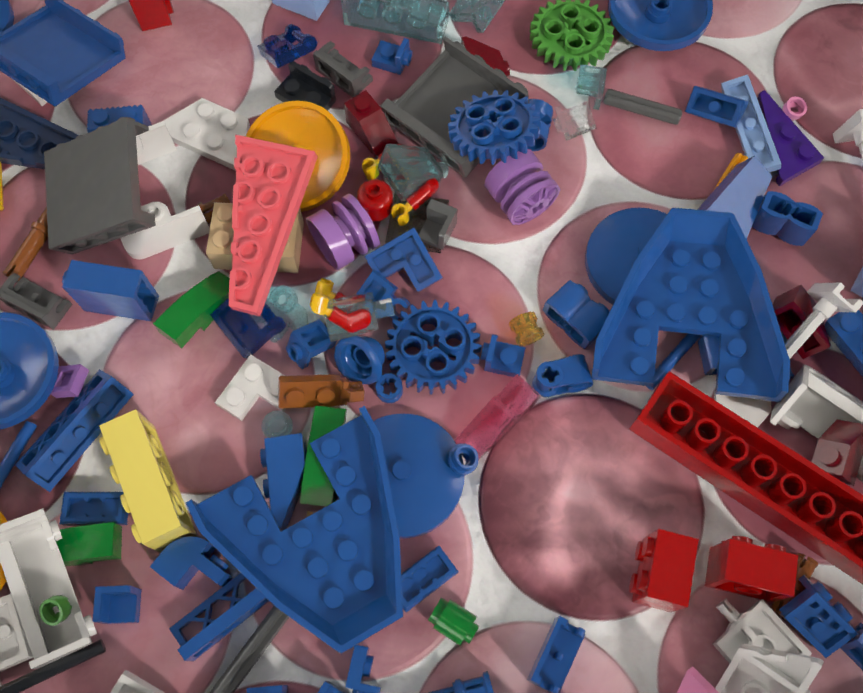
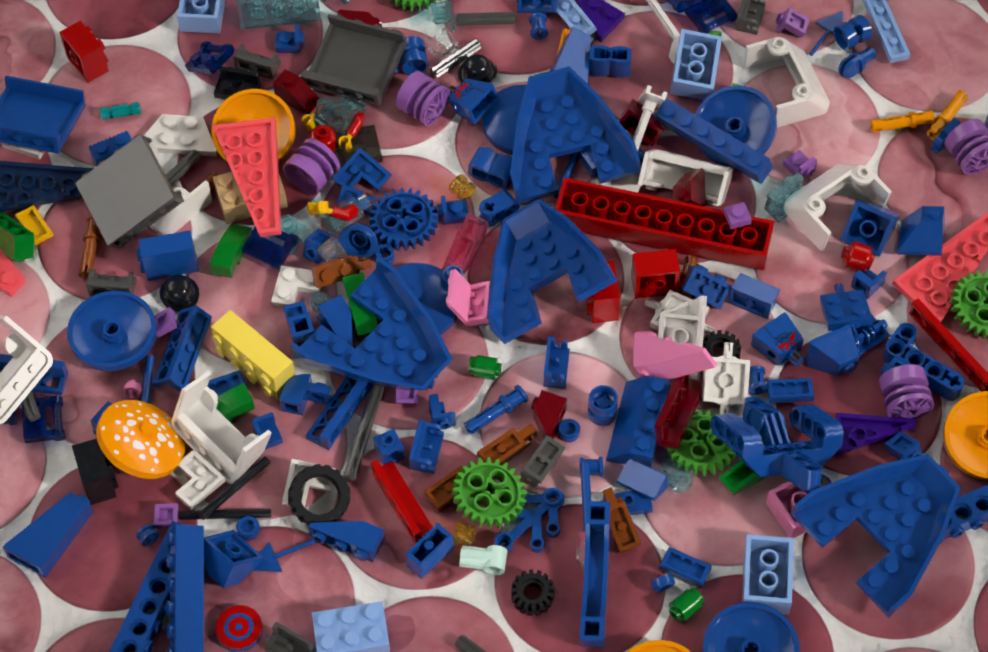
camera: 20 degrees left, 10 degrees down
(47, 613) = (228, 436): bright green hinge -> none
(111, 345) = (179, 292): none -> black hat
(158, 77) = (120, 110): none -> teal axle
(183, 179) = (183, 166): none -> dark grey axle
(232, 457) = (298, 322): none -> blue brick
(316, 361) = (331, 249): none -> clear bracket
(426, 577) = (459, 348): blue plate -> none
(439, 224) = (375, 140): dark grey panel -> none
(472, 506) = (468, 300): none -> bright pink bracket
(494, 127) = (389, 63): blue gear -> none
(585, 145) = (455, 58): none -> axle
(586, 209) = (472, 99): none -> blue torso
(589, 472) = (531, 252): none -> blue piece
(605, 173) = (477, 68): none -> black hat
(706, 138) = (540, 25): none -> blue bush

